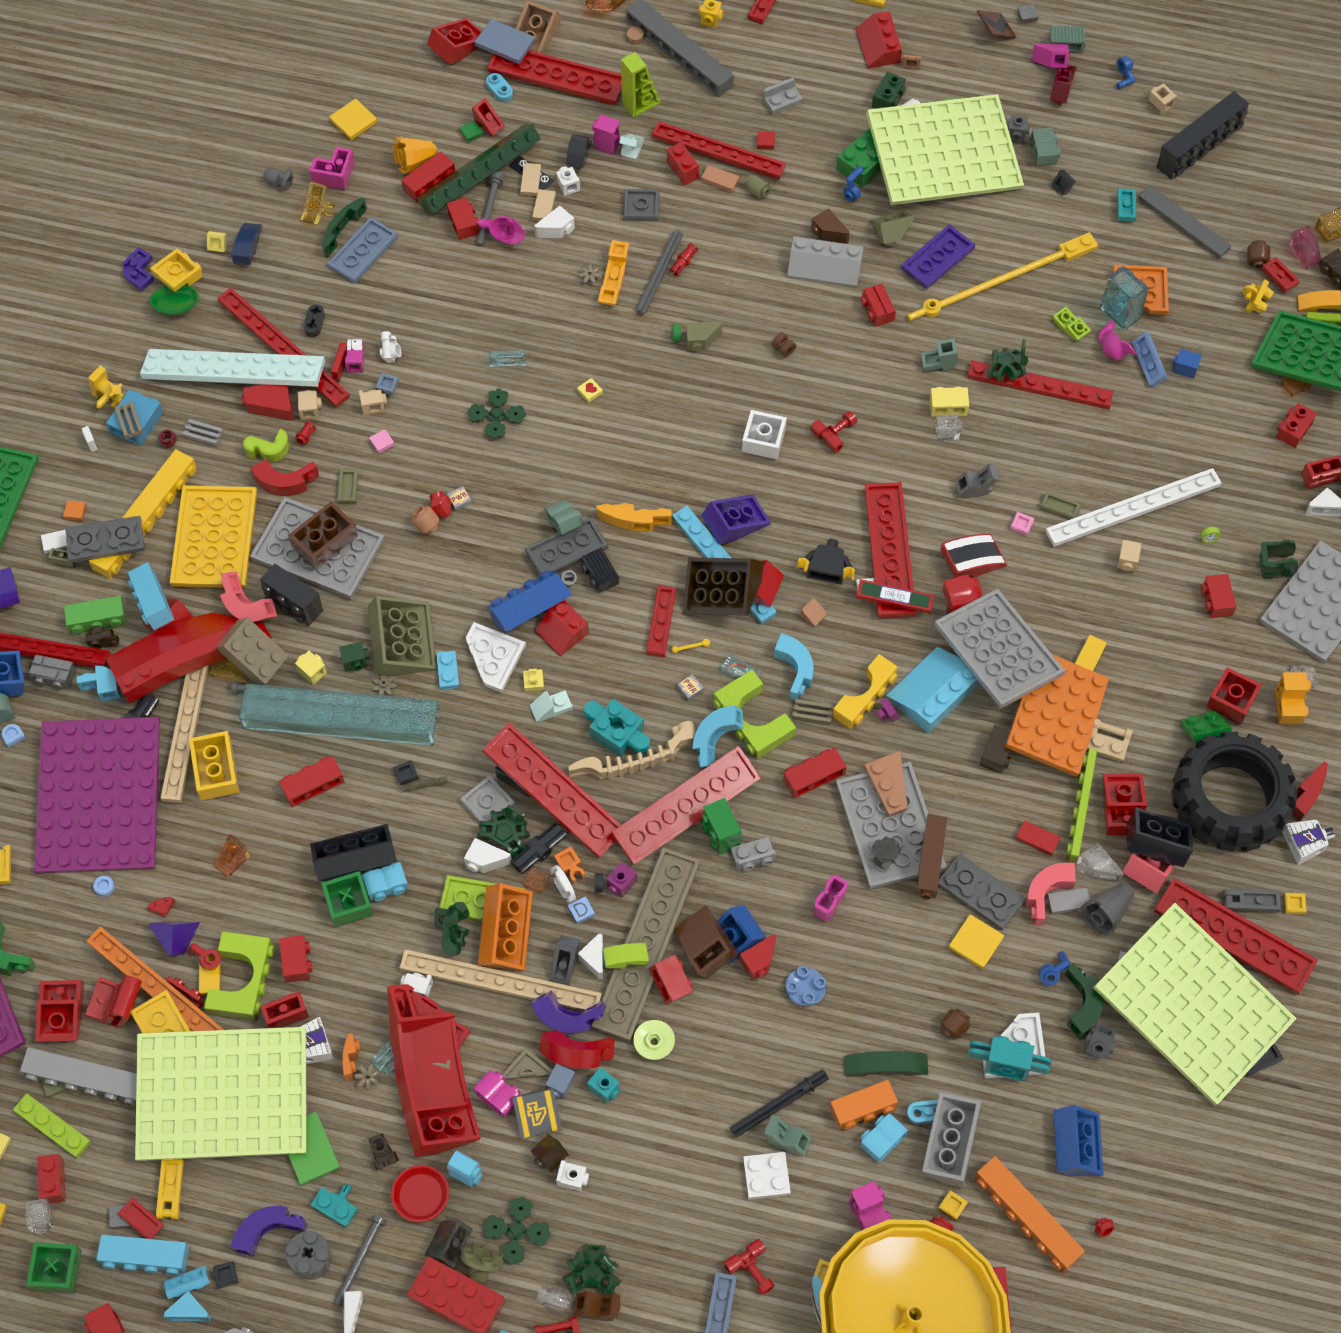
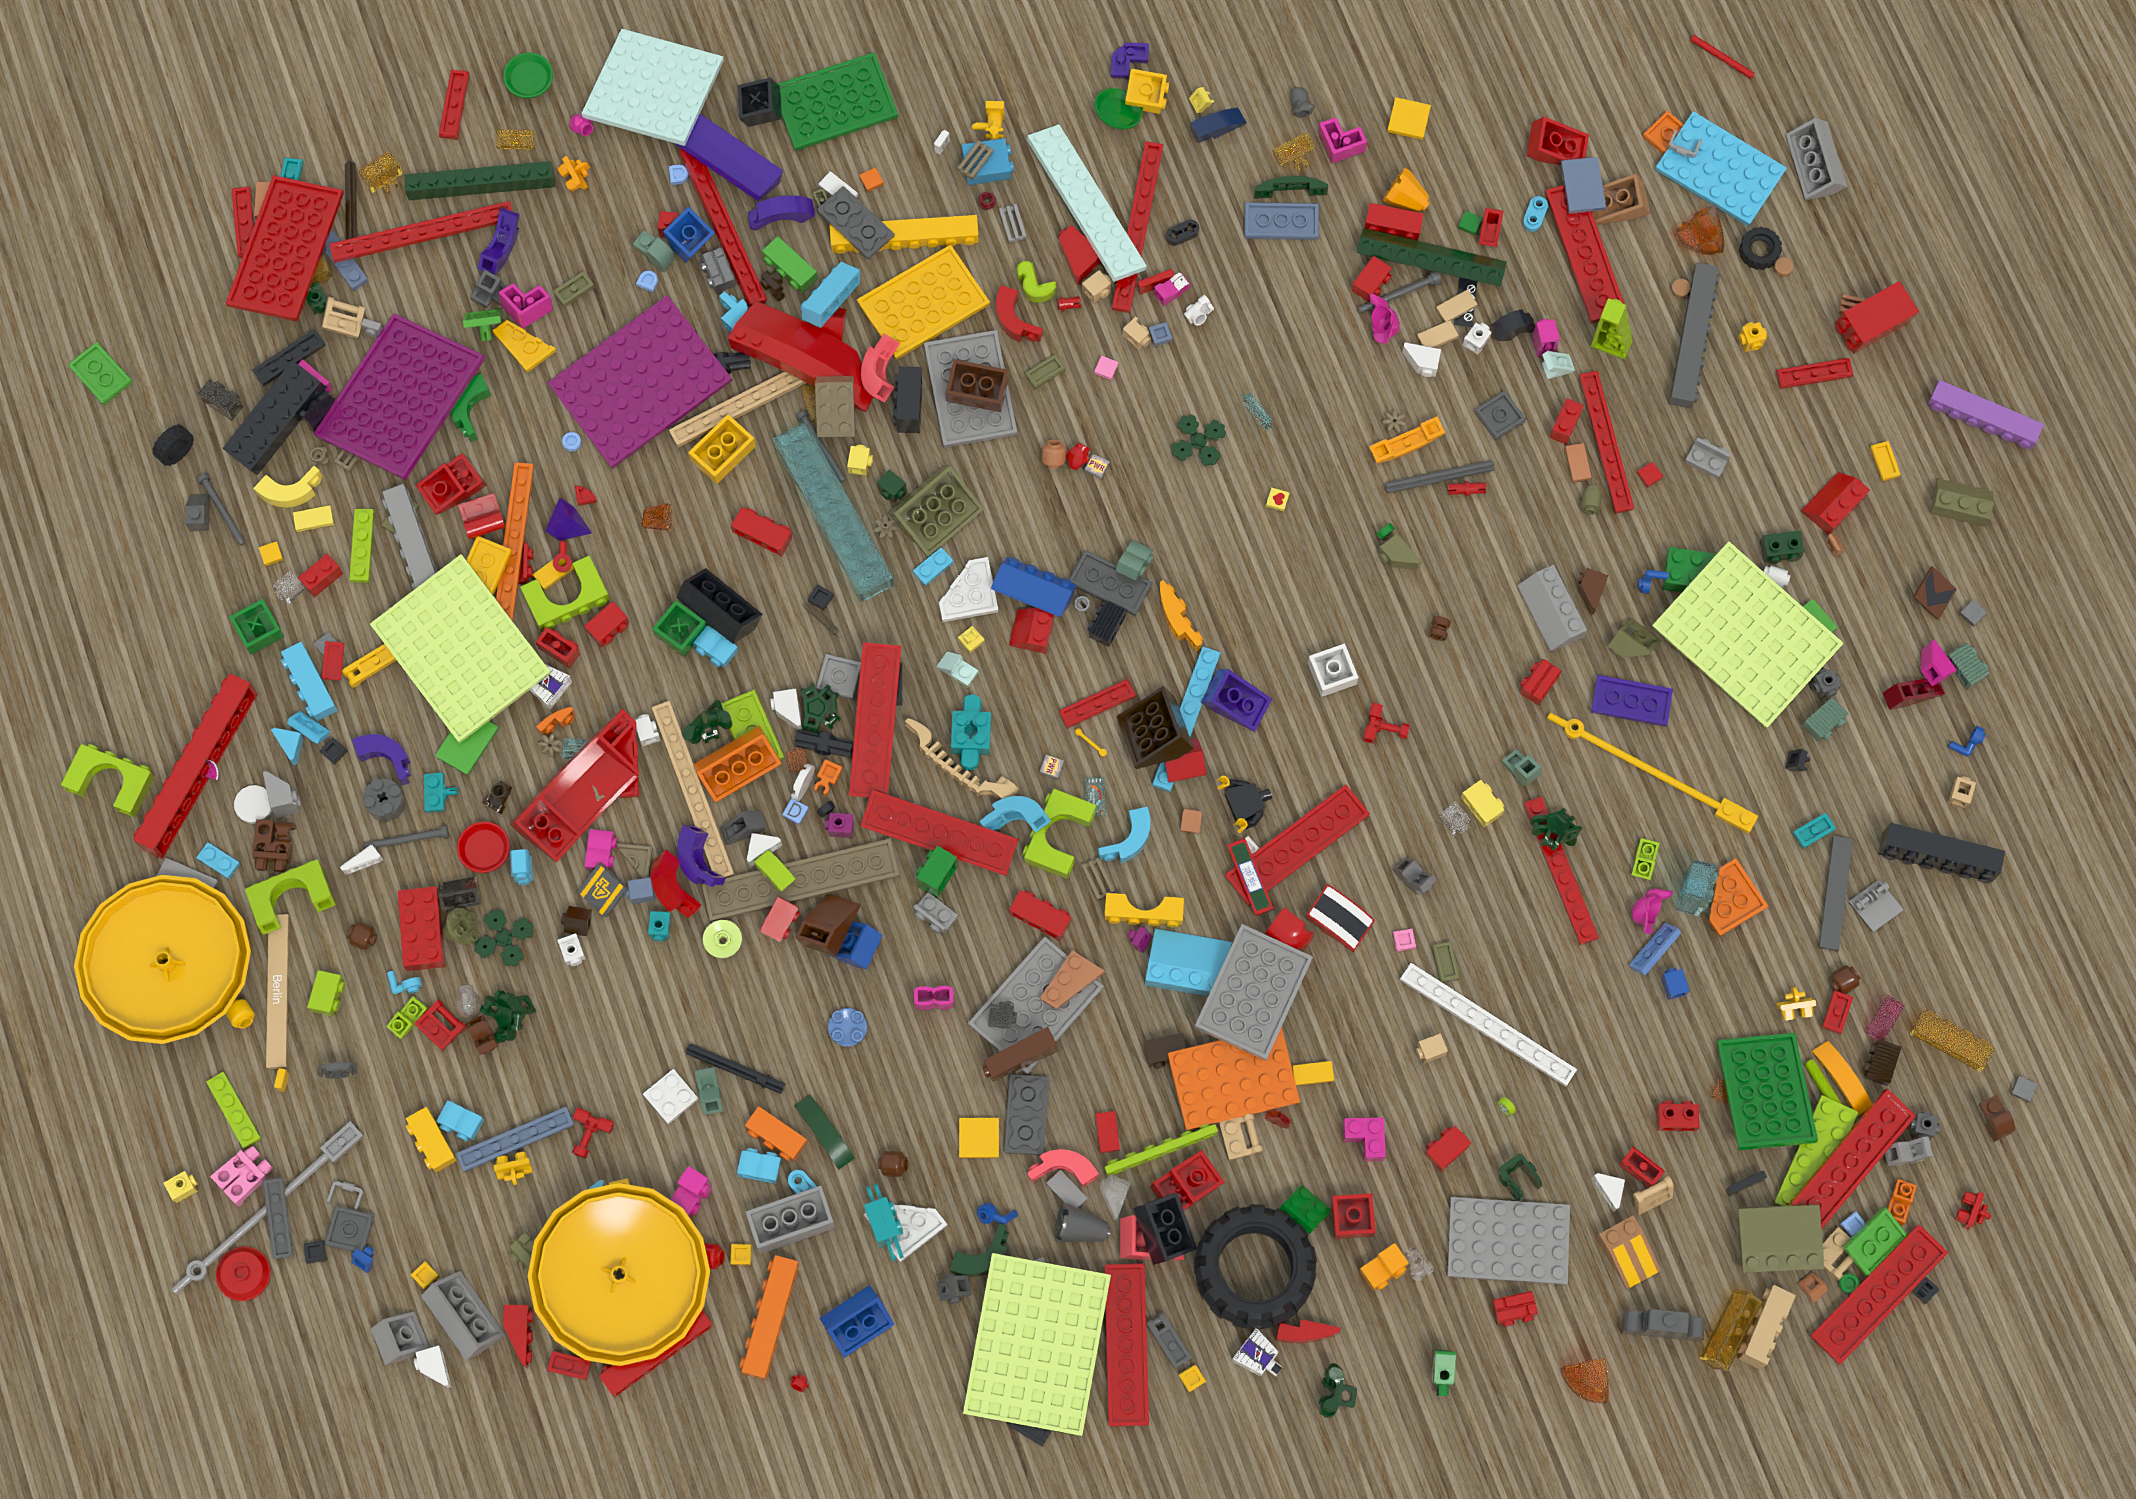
camera: 55 degrees right, 10 degrees up
(41, 589) = (781, 208): none -> dark purple arch
(758, 958) = (846, 976): red slope -> none
(1113, 701) = (1278, 1118): none -> clear red tile
(1172, 642) = (1370, 1132): none -> dark pink brick
(1211, 202) = (1876, 905): none -> light grey hinge

